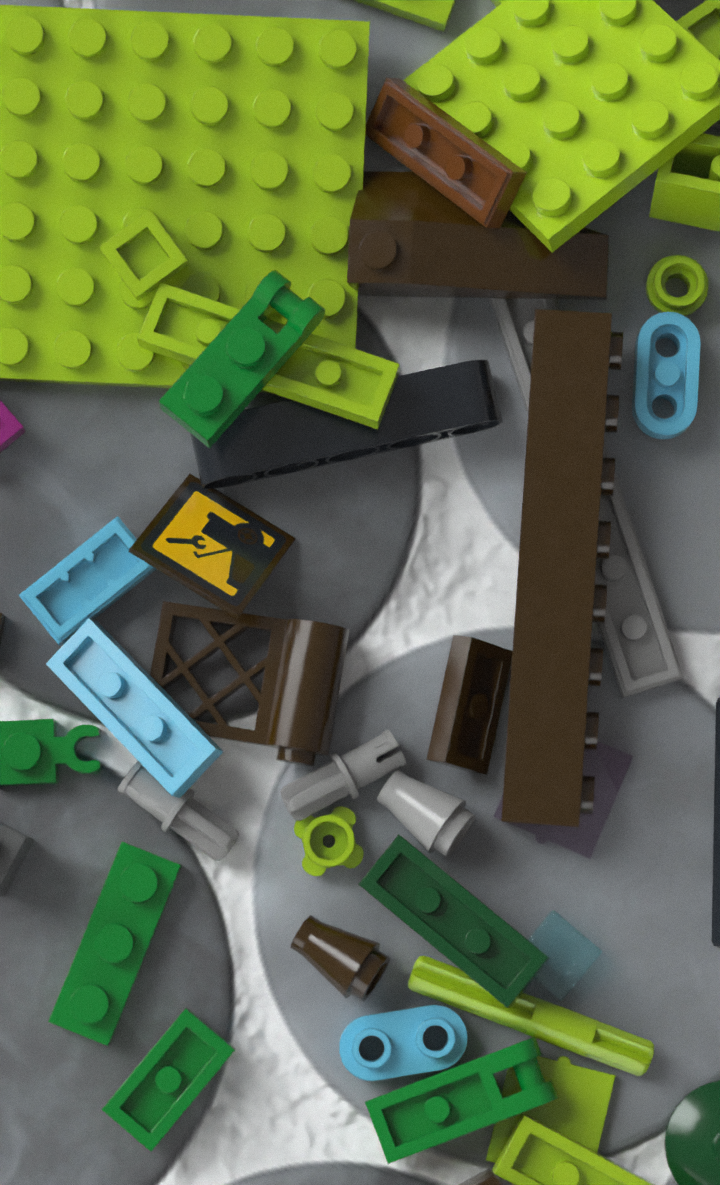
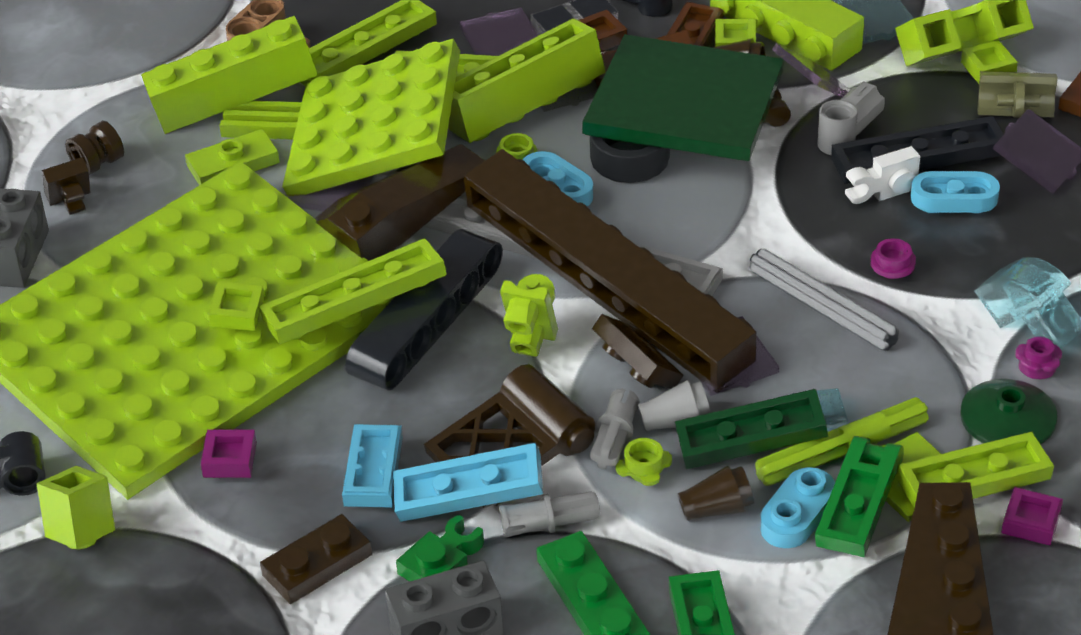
camera: 40 degrees left, 40 degrees down
(212, 545) = (422, 395): piece -> none
(241, 360) = (342, 289): green plate -> none
(414, 553) = (529, 313): none -> lime hips
(444, 153) = (343, 170): reddish brown tile -> none

